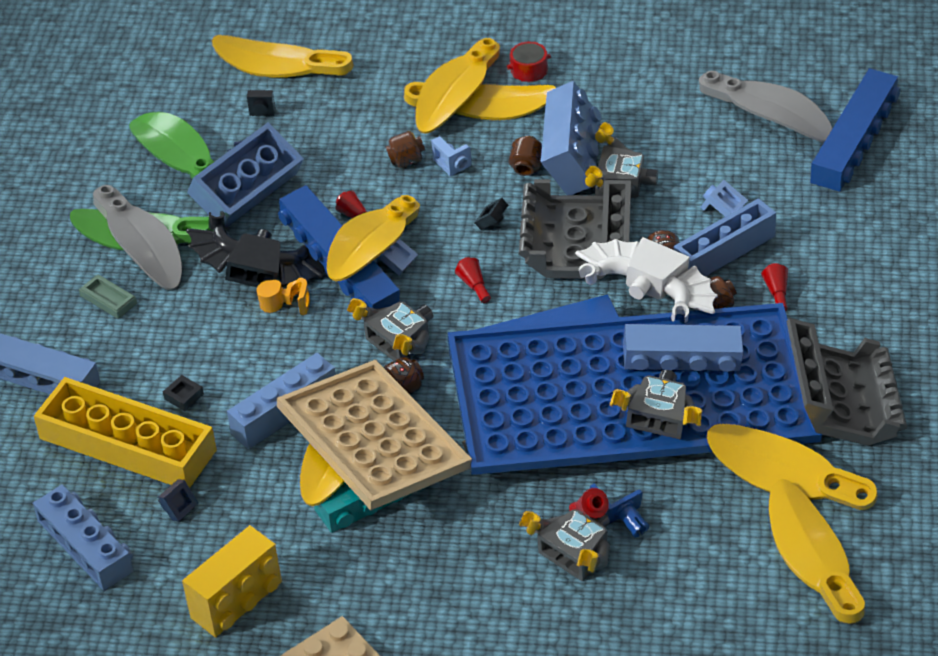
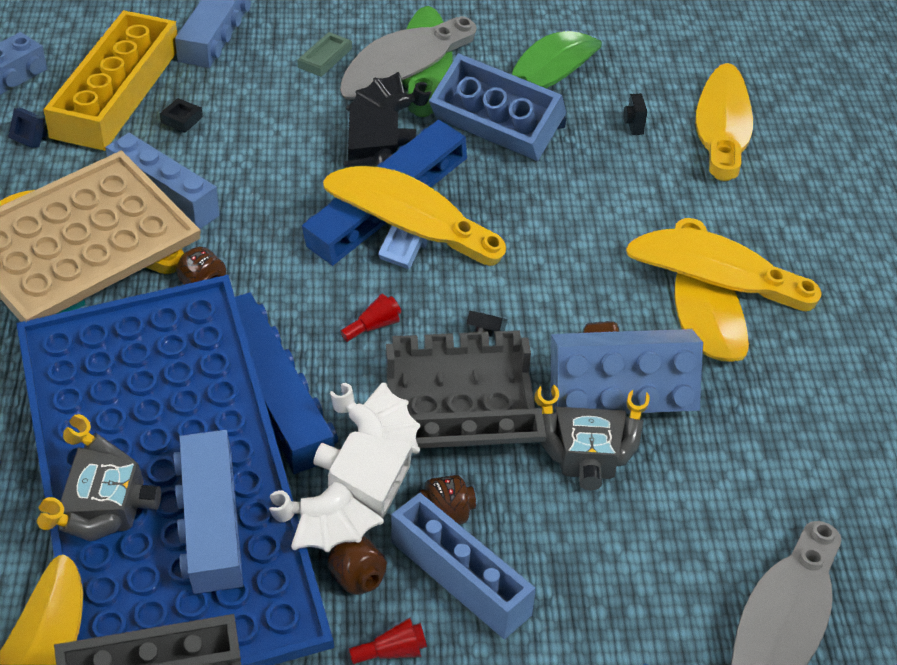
camera: 75 degrees right, 0 degrees up
(272, 295) = (326, 160): light orange leg -> none
(349, 204) = (482, 201): red cone -> none
(394, 329) = (272, 258): dark grey torso -> none
(405, 149) = (586, 234): reddish brown head -> none
(450, 159) = (583, 274): light blue bracket -> none
(528, 61) = (790, 333): red piece -> none
(723, 198) = (559, 566): light blue bracket -> none

